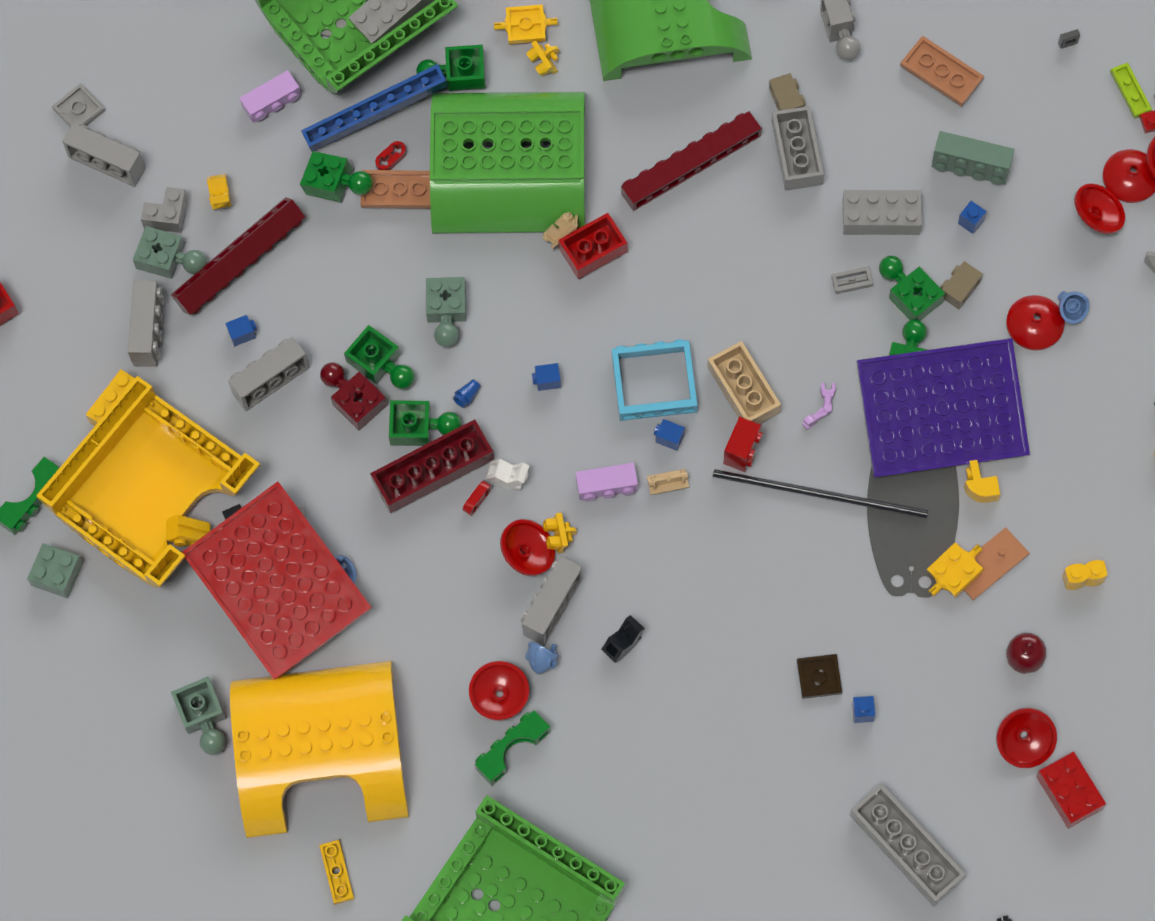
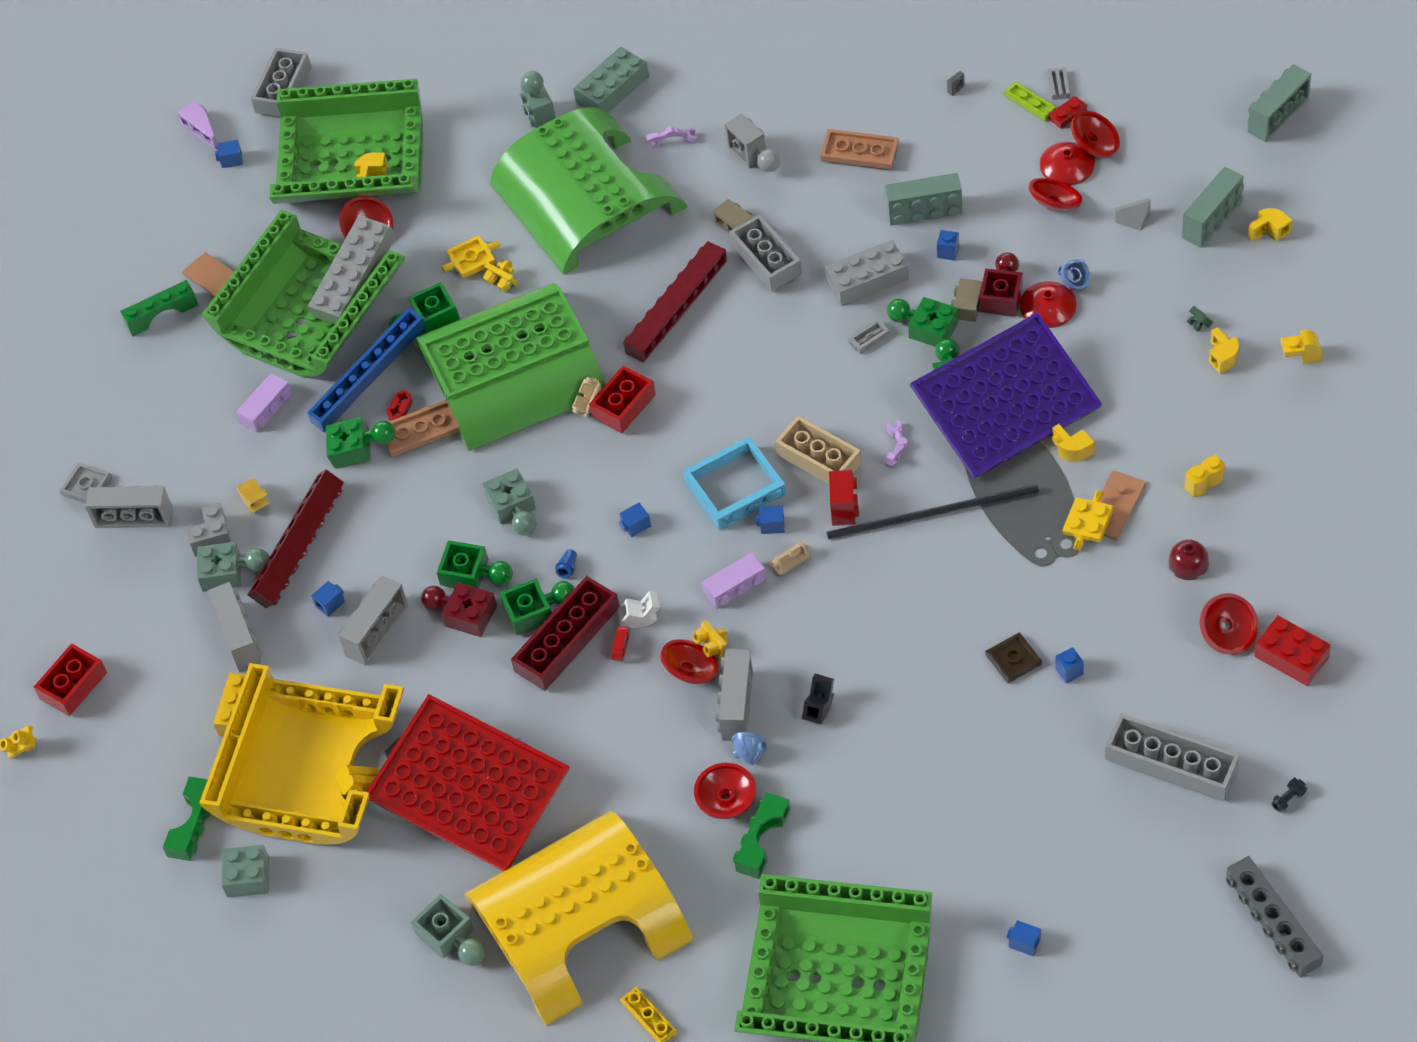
camera: 20 degrees left, 15 degrees down
(1002, 282) = (1002, 286): none -> dark red brick

